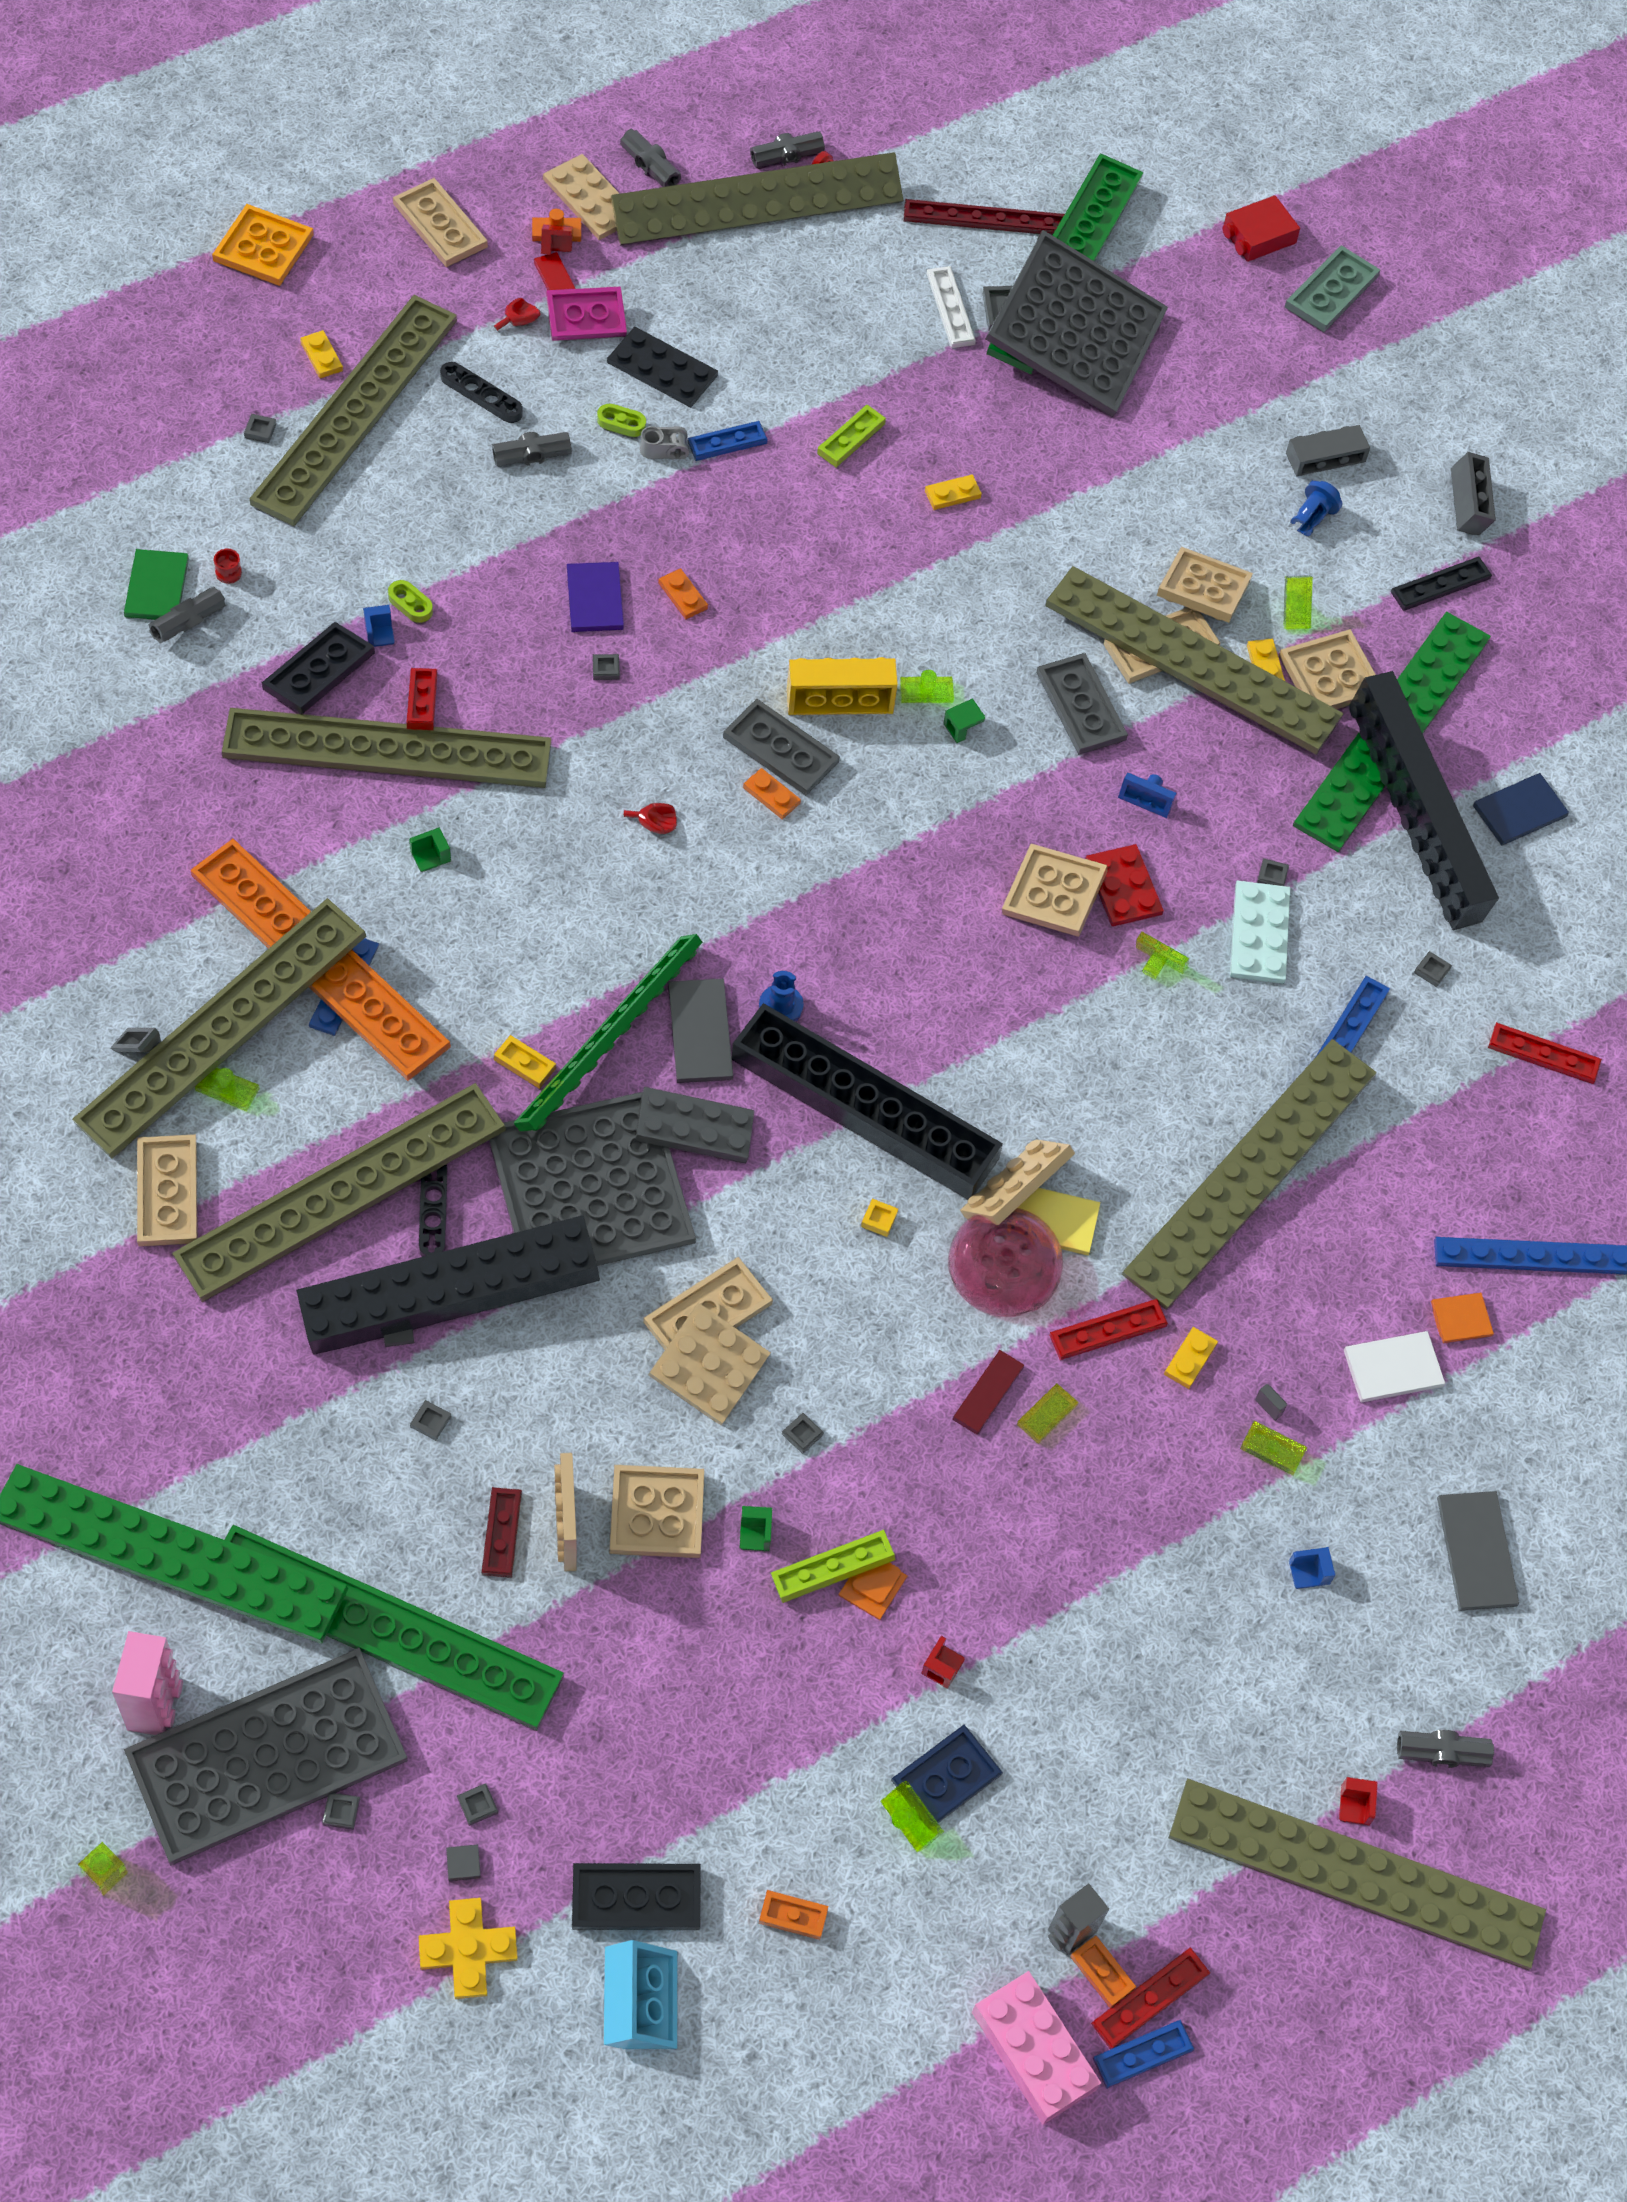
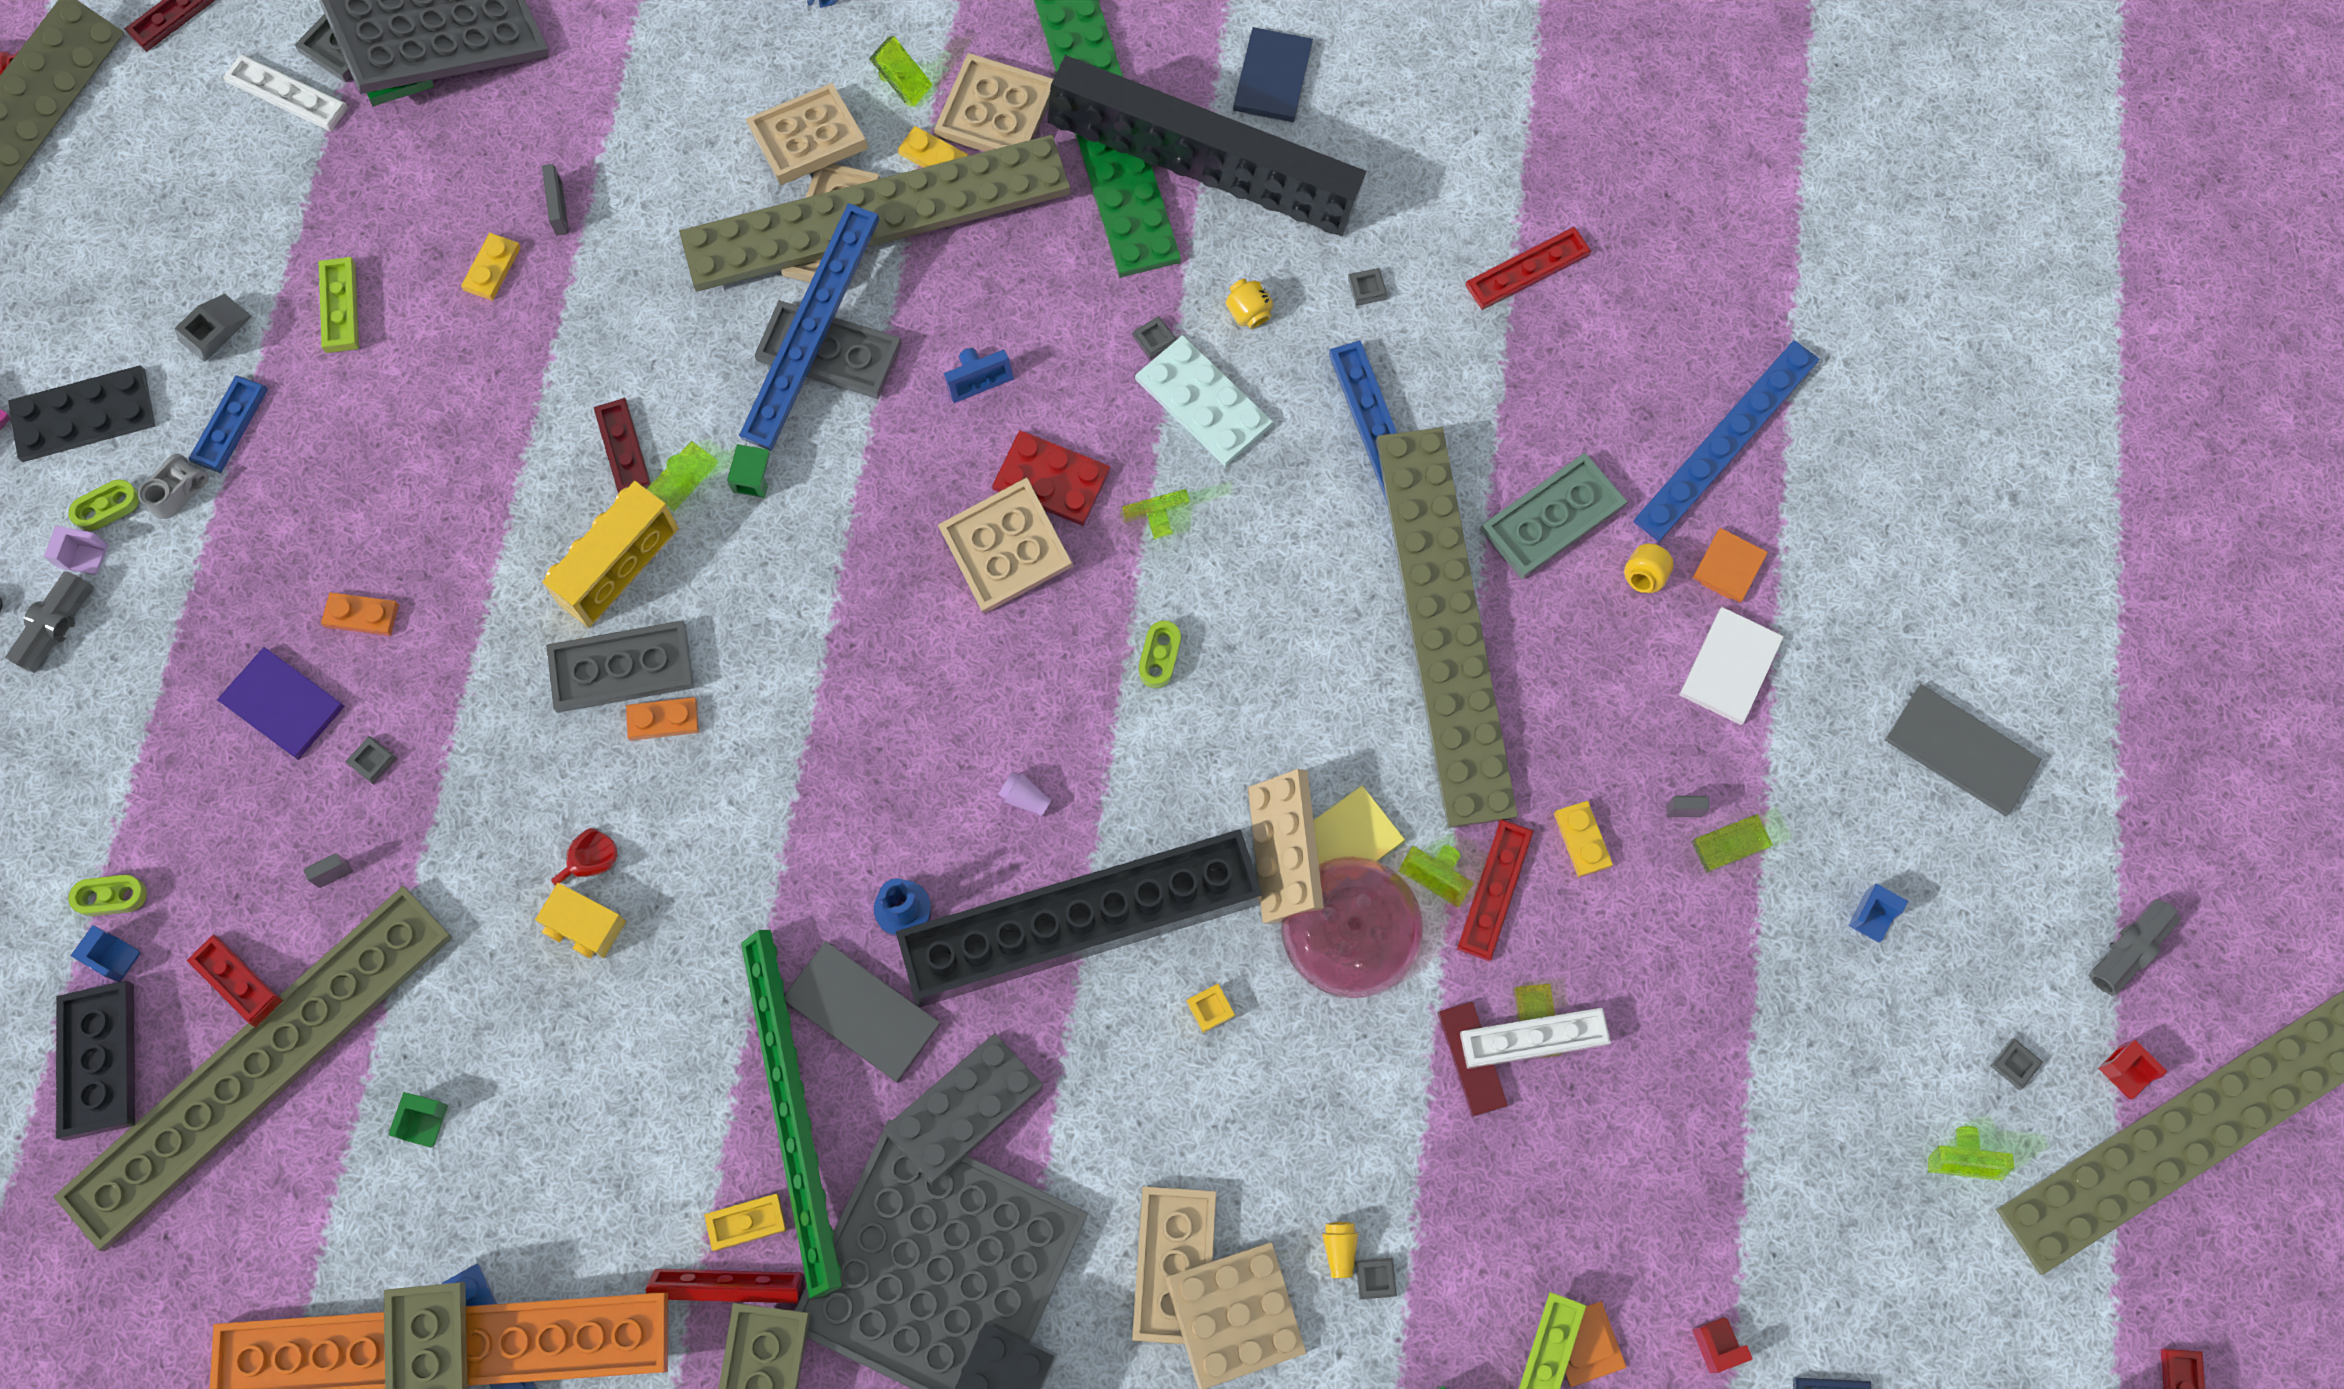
camera: 45 degrees left, 10 degrees up
(482, 1078) = (727, 1285): none -> red tile
(524, 694) = (327, 870): none -> dark grey tile
(583, 427) = (75, 550): none -> lavender panel
(615, 842) = (580, 921): none -> yellow brick
(775, 384) = (211, 326): none -> dark grey slope
(803, 1397) = (1340, 1247): none -> yellow cone
(911, 1016) = (1024, 794): none -> lavender cone
(915, 643) = (622, 444): none -> dark red tile
(1026, 490) = (555, 199): none -> dark grey tile
(1034, 1415) = (1535, 1038): none -> white tile
(1070, 1028) = (1159, 655): none -> lime plate
(1083, 678) = (809, 327): none -> blue plate
(1084, 1285) = (1437, 873): none -> clear neon green tile
(1202, 1736) = (1969, 1159): none -> clear neon green tile
(1294, 1728) = (2016, 1064): none -> dark grey tile
(1349, 908) = (1249, 303): none -> yellow head
(1388, 1187) = (1553, 515): none -> sand green plate
(1408, 1267) = (1648, 568): none -> yellow head

